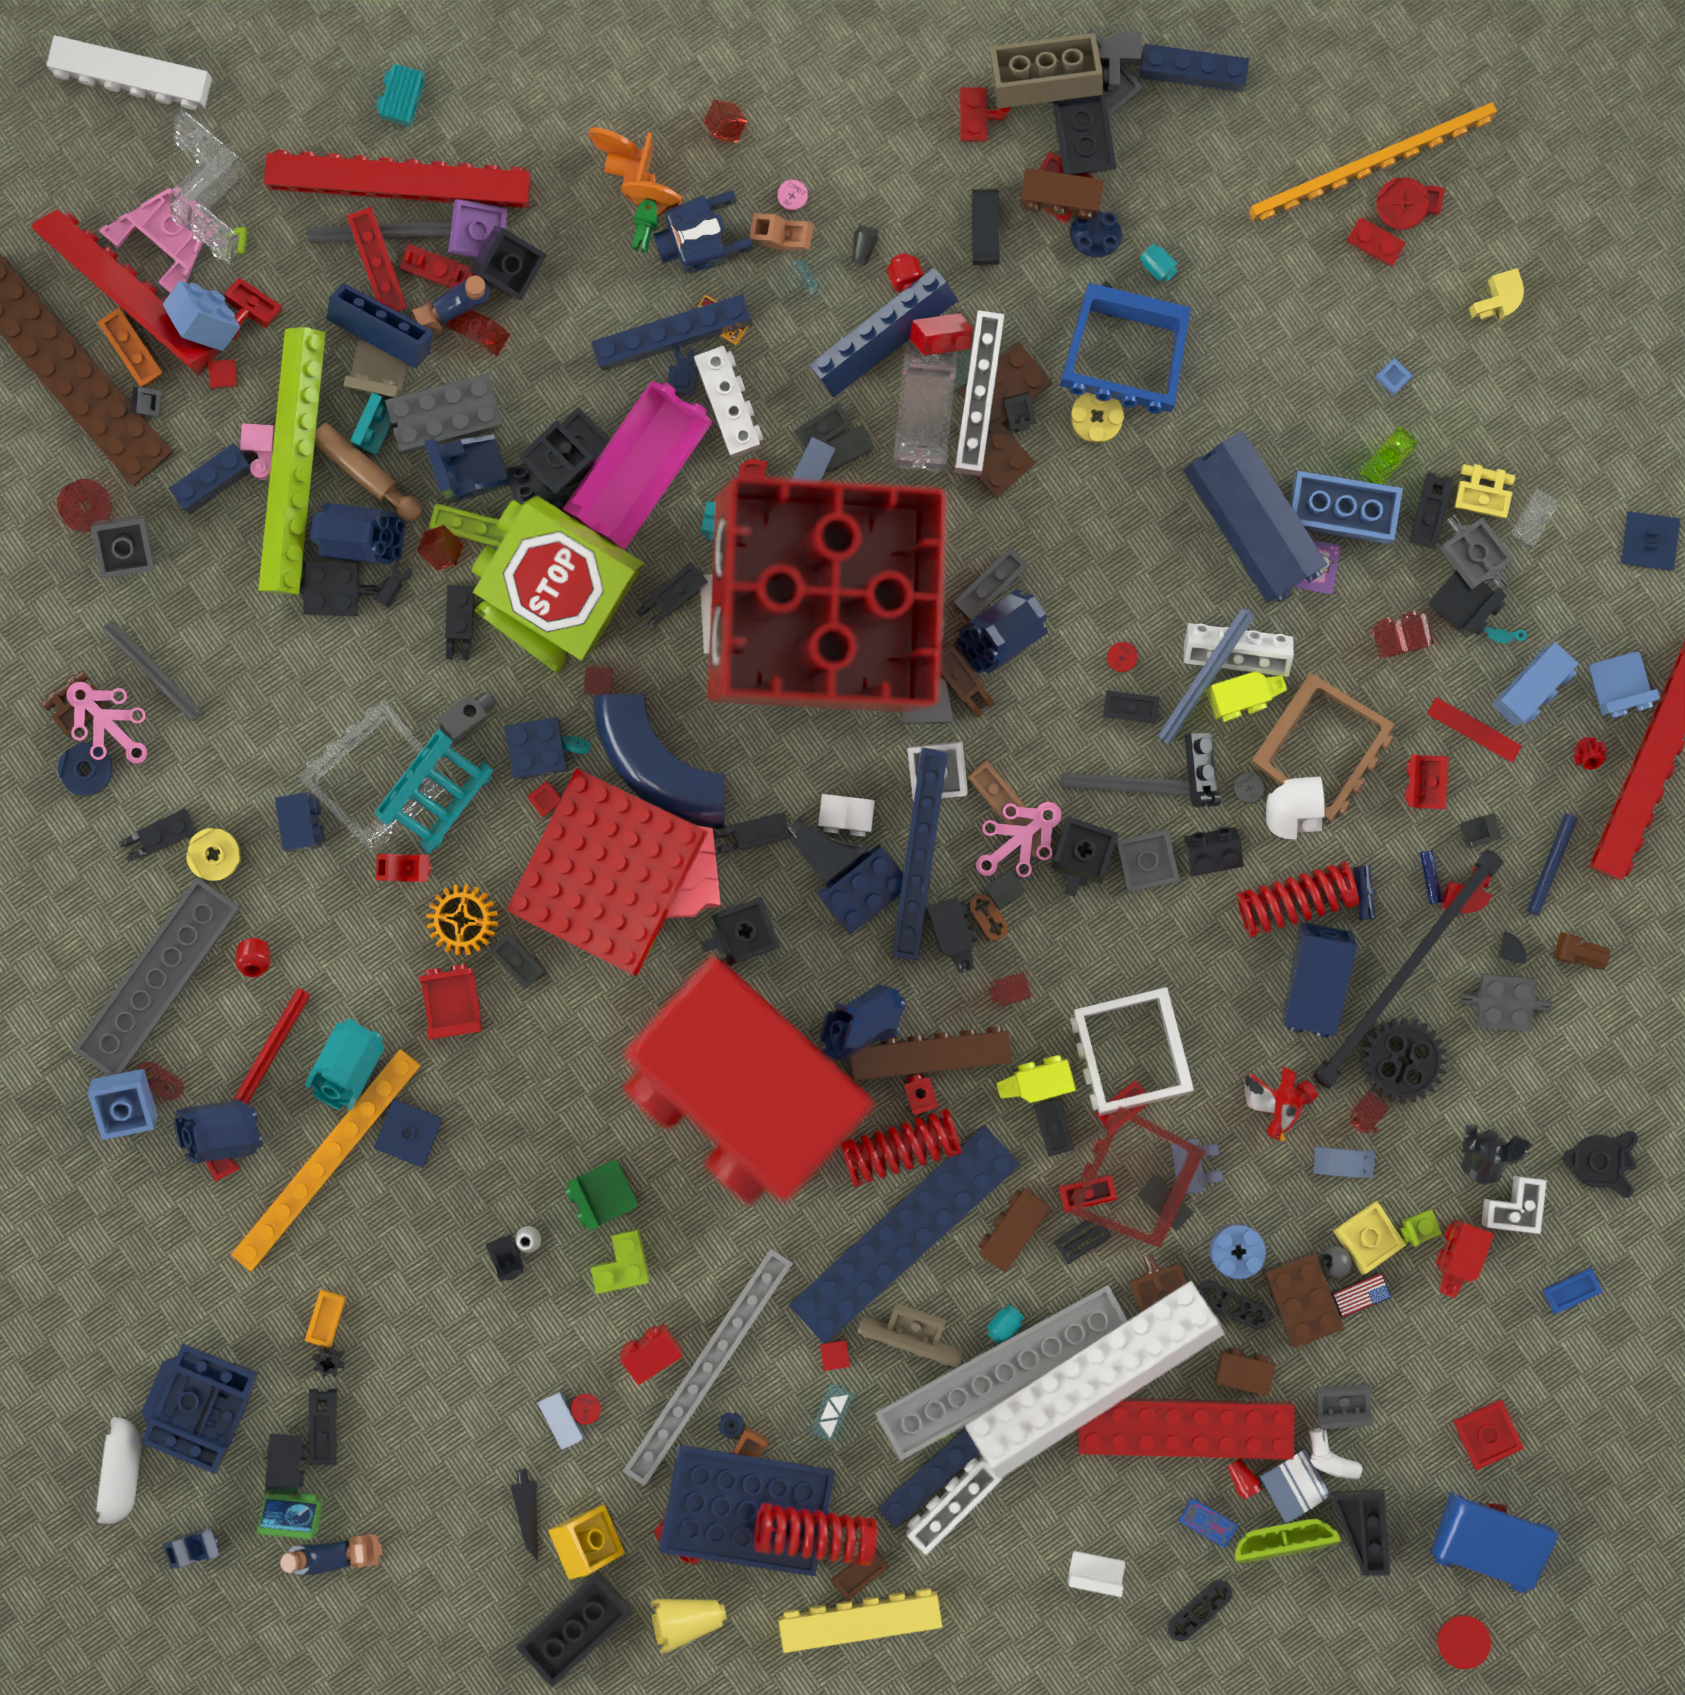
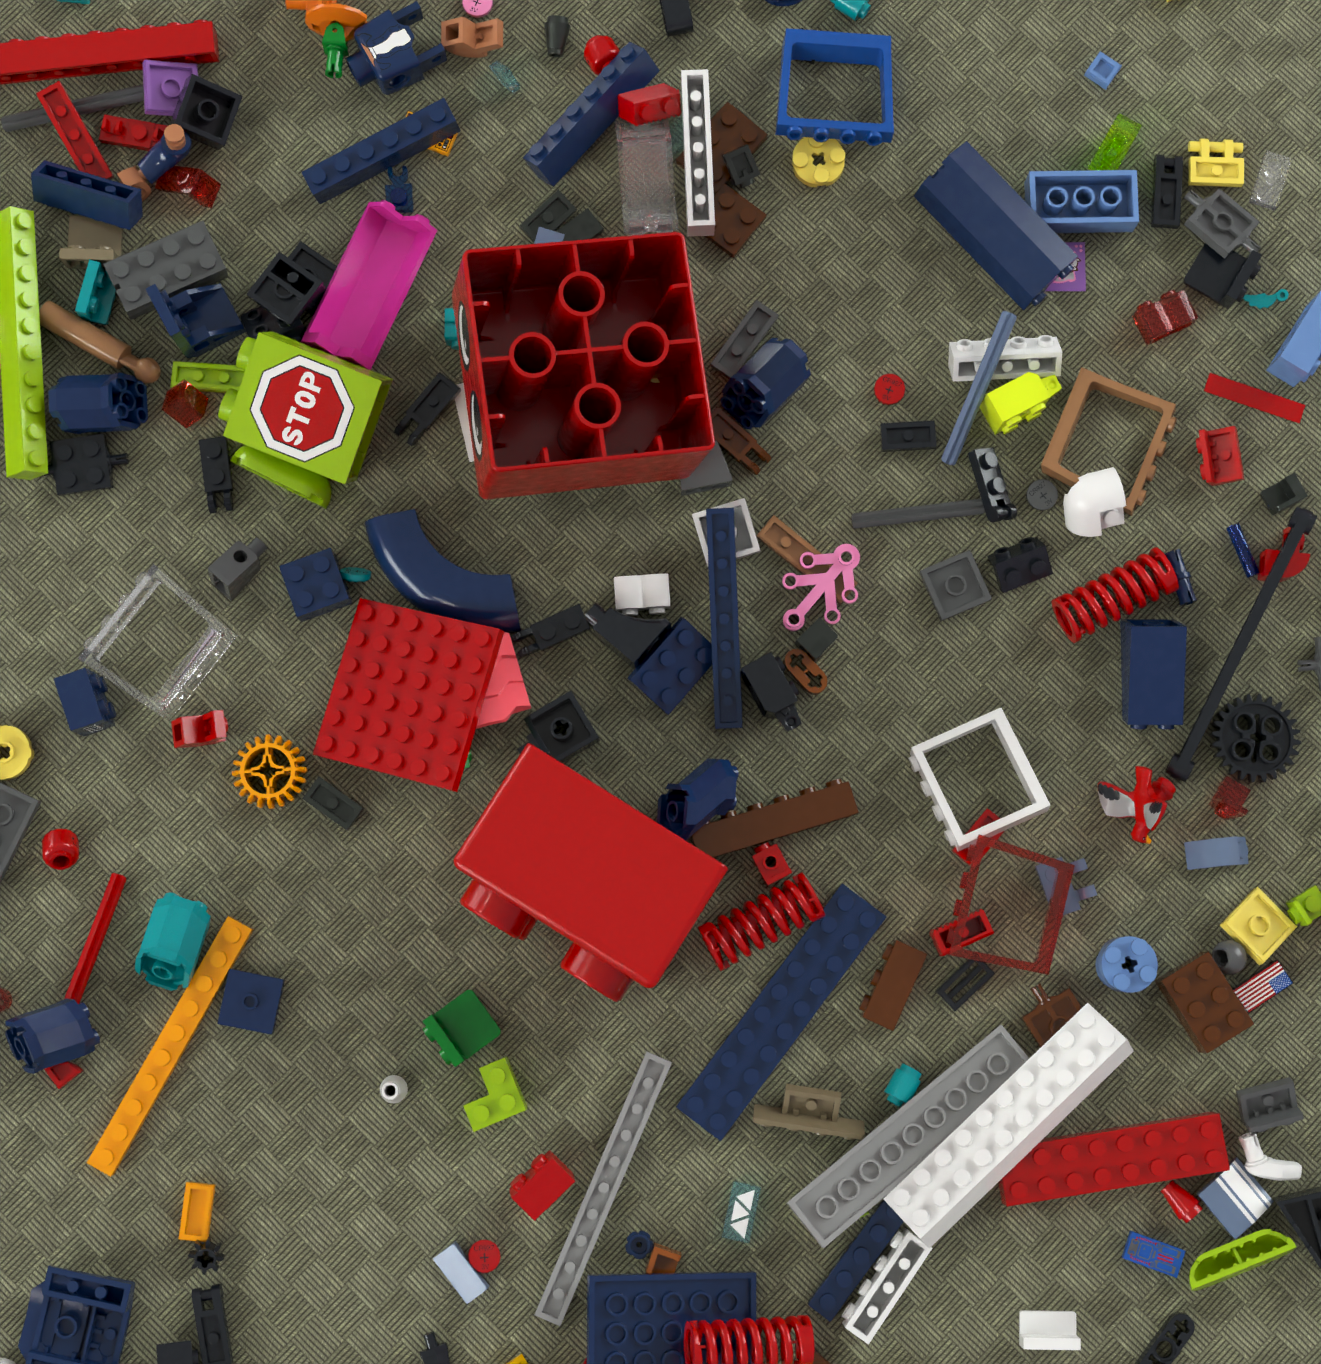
camera: 10 degrees left, 5 degrees down
(392, 585) = (143, 449): black bar -> none
(421, 768) = (203, 622): teal fence -> none
(451, 1002) = (272, 858): red panel -> none
(505, 1258) = (373, 1112): black bracket -> none
(544, 799) = (333, 635): red tile -> none
(598, 681) = (366, 507): clear red tile -> none
(727, 401) = (447, 206): white brick -> none
(835, 1355) = (733, 1150): red tile -> none
(1010, 989) = (842, 738): clear red brick -> none
(1038, 1081) = (889, 827): neon yellow hinge -> none
(1053, 1127) = (913, 872): black plate -> none
(1068, 859) = (886, 604): black hinge -> none
(1155, 1195) = (1031, 923): pearl dark grey tile -> none
(1244, 1372) = (1158, 1088): reddish brown brick -> none
(1247, 1320) = (1154, 1020): black beam -> none

